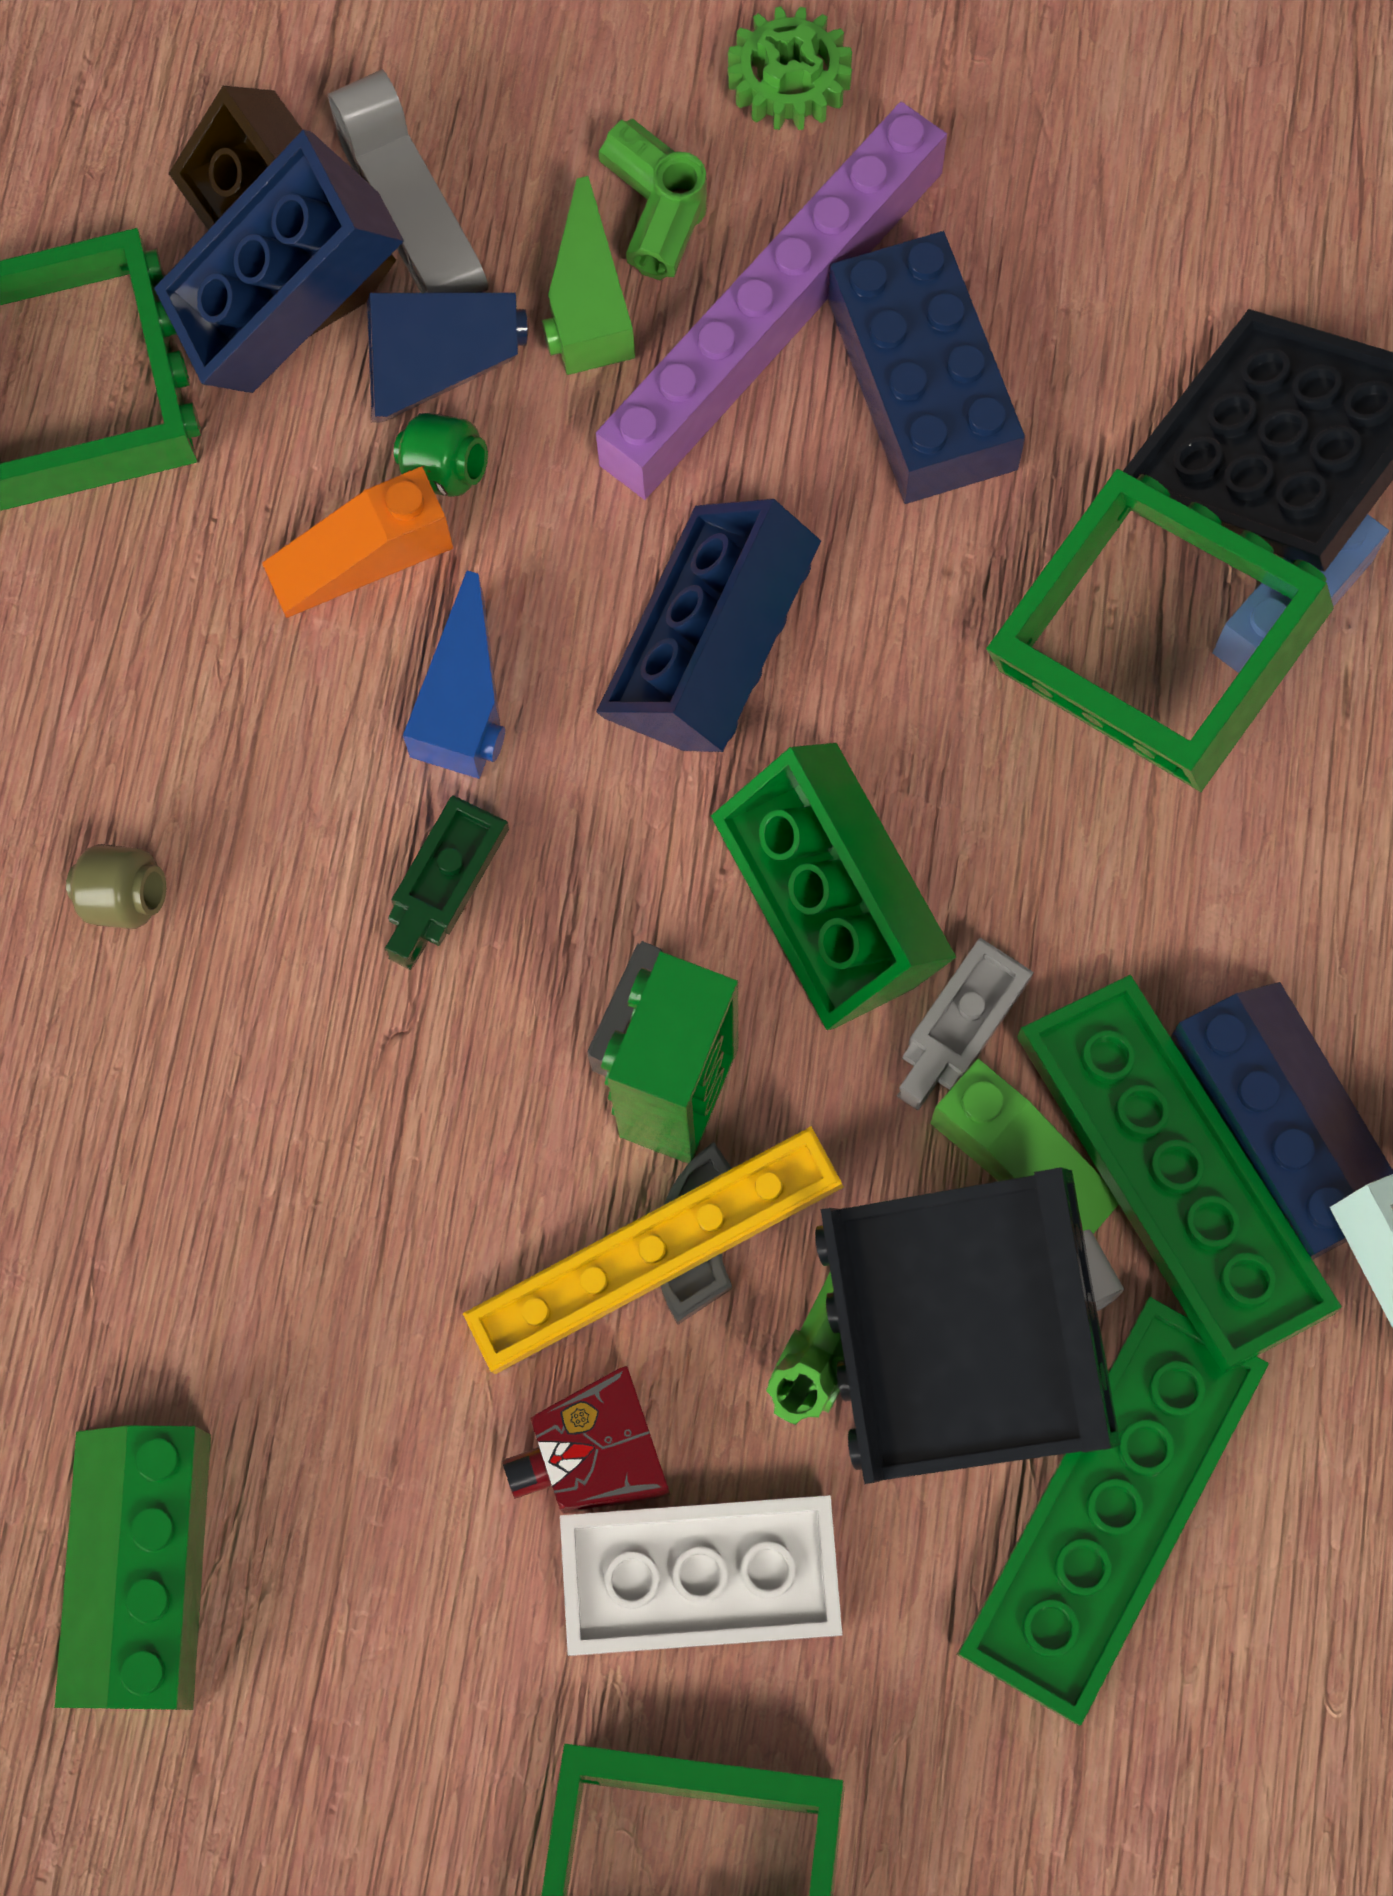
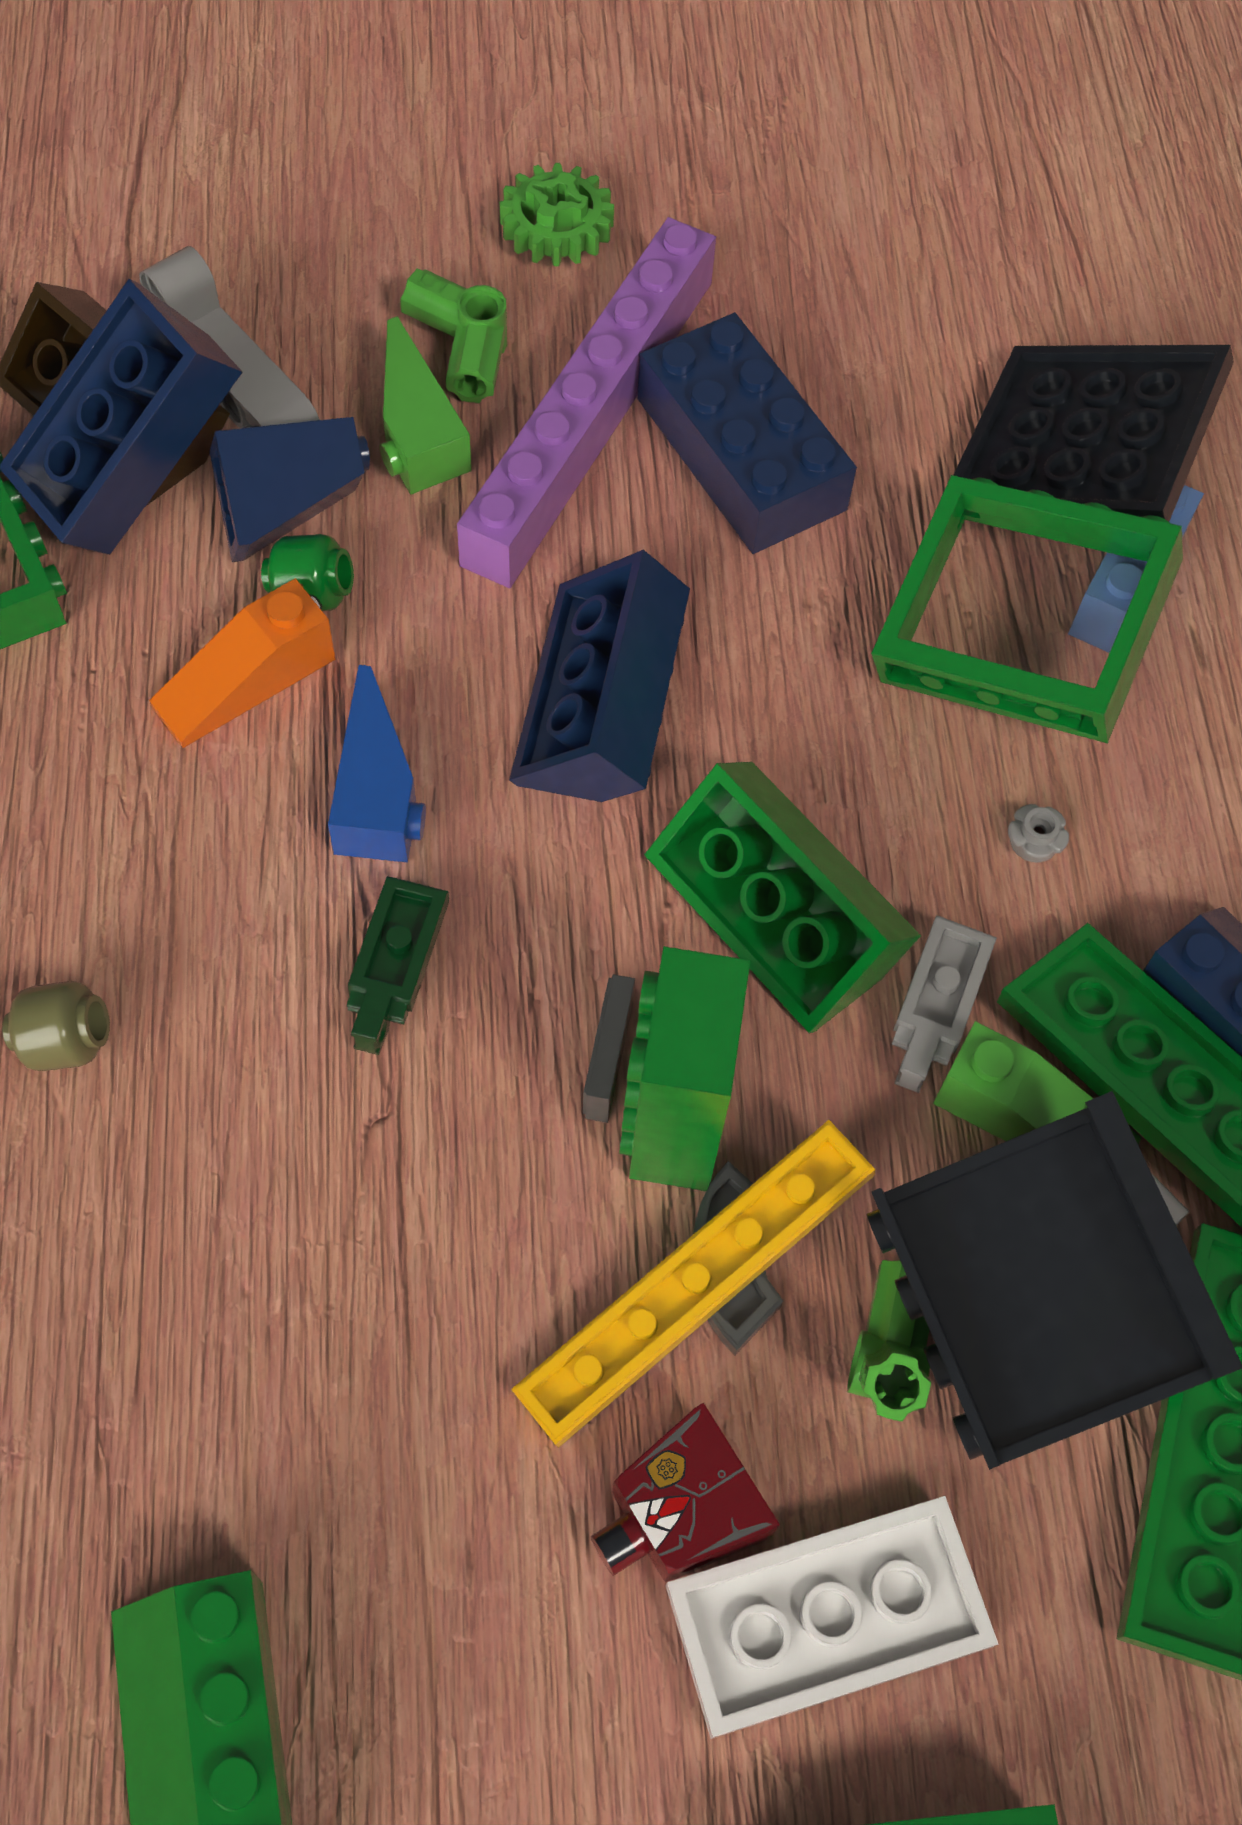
camera: 20 degrees left, 10 degrees down
(1110, 883) = (1032, 845): none -> light grey plate

